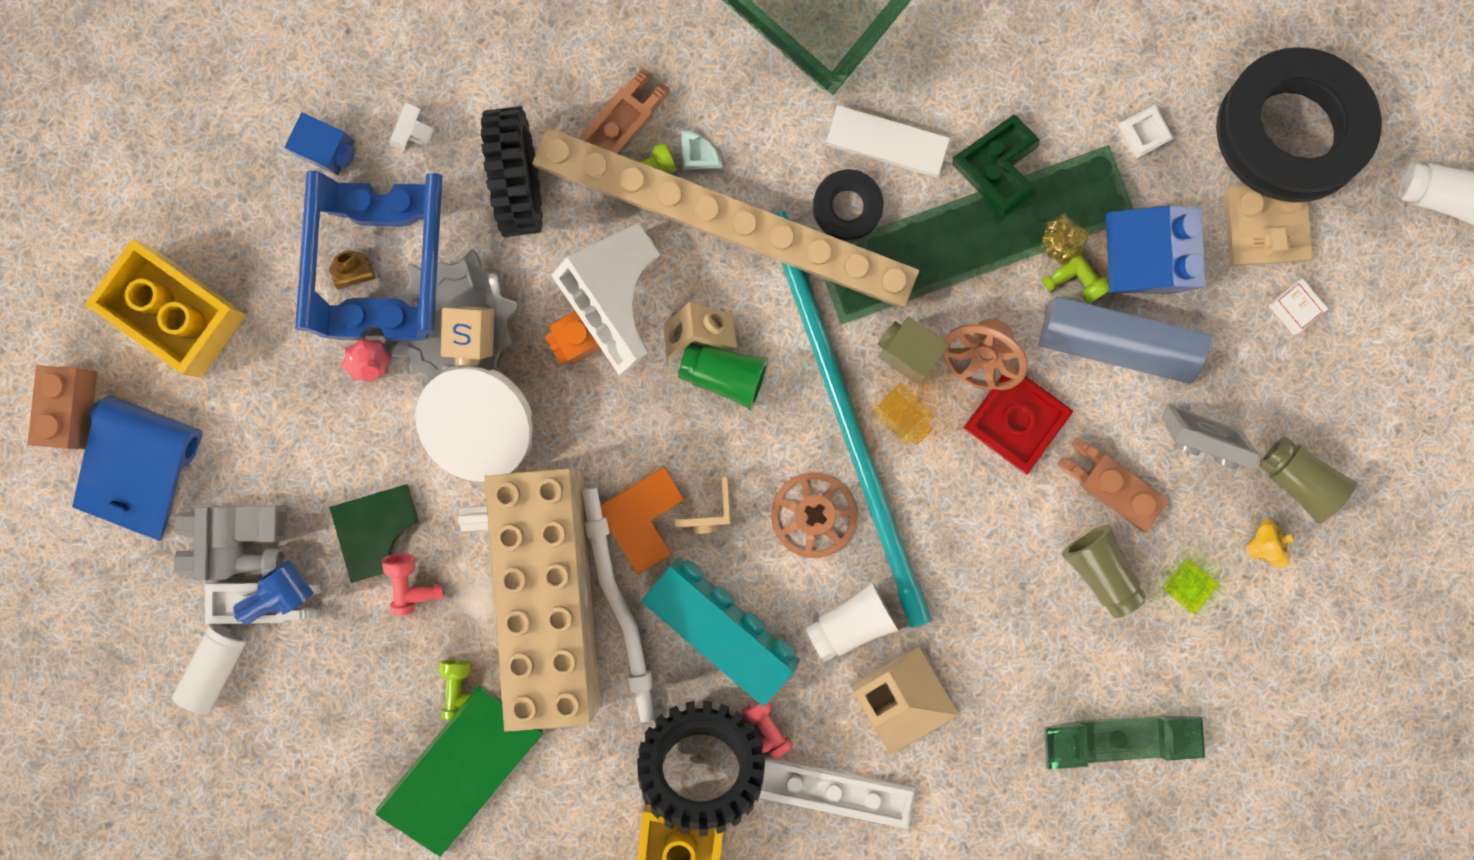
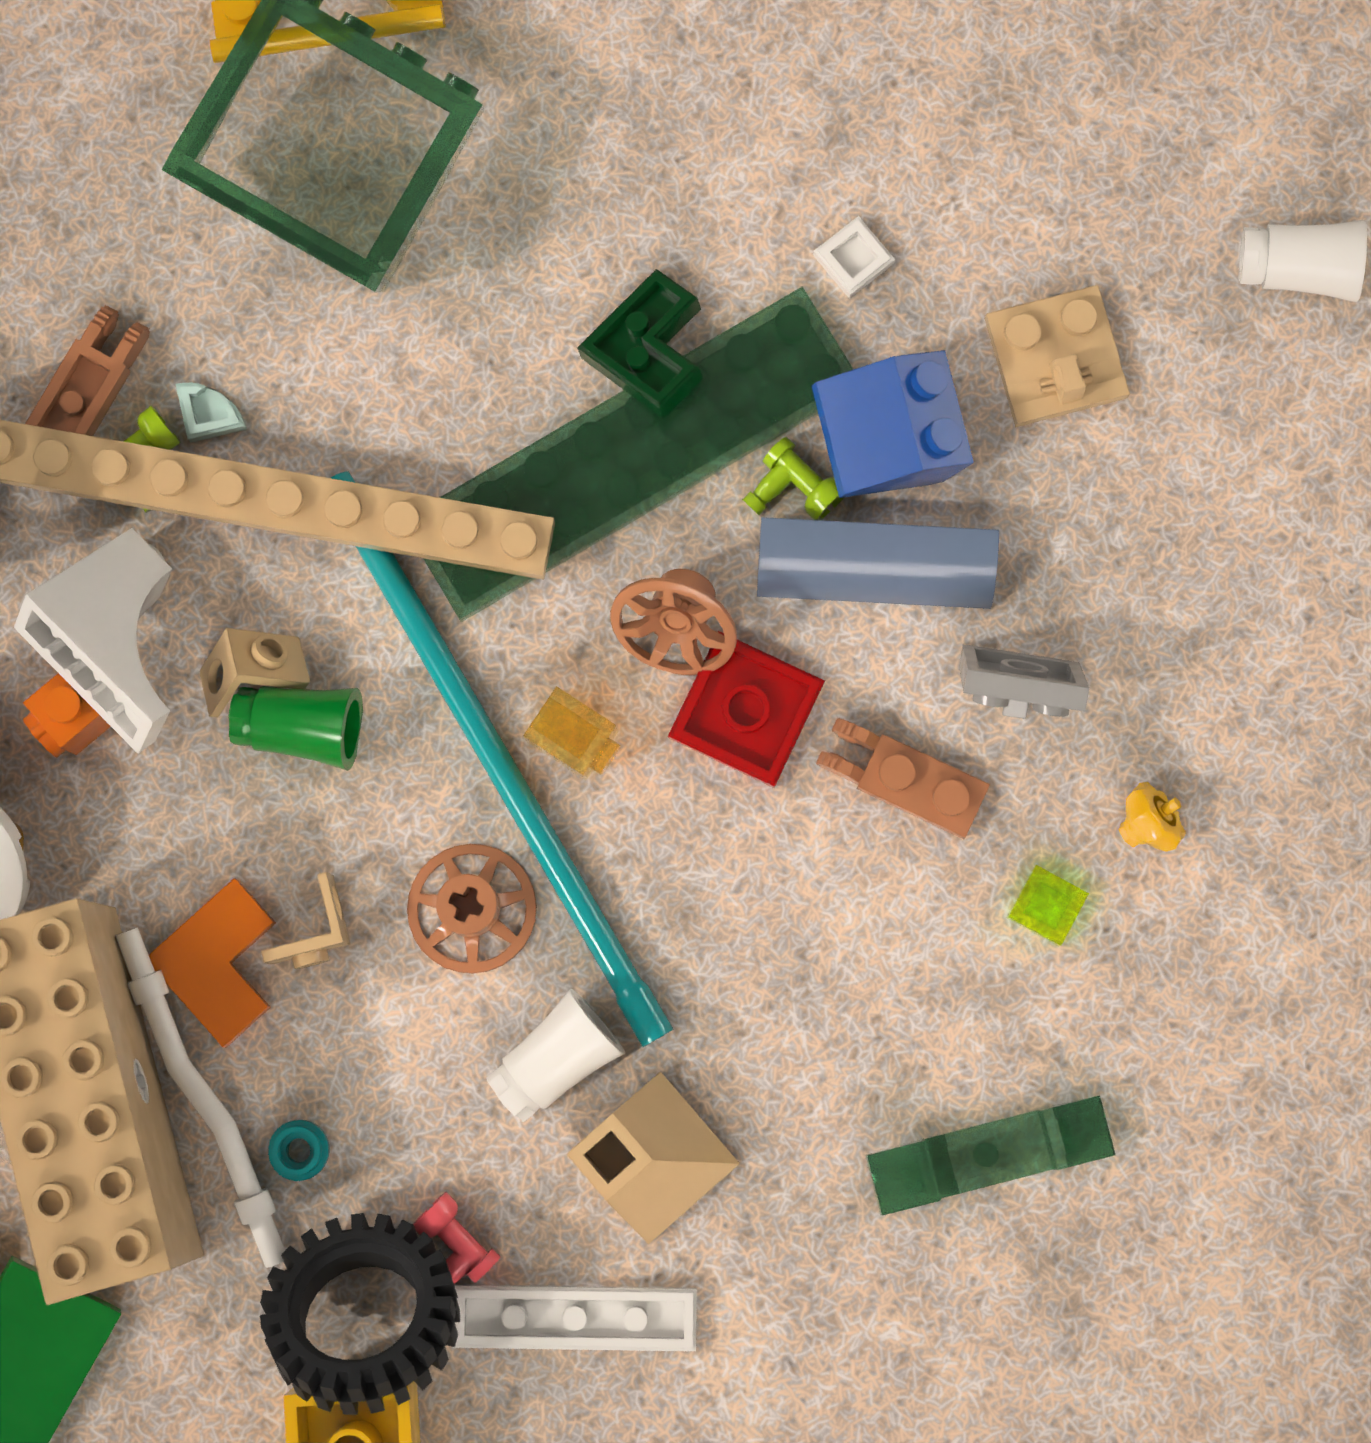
camera: 10 degrees left, 5 degrees down
(665, 659) = (279, 1150): none -> teal plate
(721, 630) = (359, 1103): teal brick -> none
(852, 181) = (428, 411): black tyre -> none
(887, 141) = (479, 342): white tile -> none
(911, 349) = (561, 634): olive brick -> none
(1064, 239) = (754, 434): clear yellow piece -> none
(1106, 571) = (915, 906): olive plant -> none
(1298, 306) = (1124, 466): white tile -> none
(1307, 479) = (1182, 712): olive plant -> none
(1321, 78) = (1079, 133): black tyre -> none

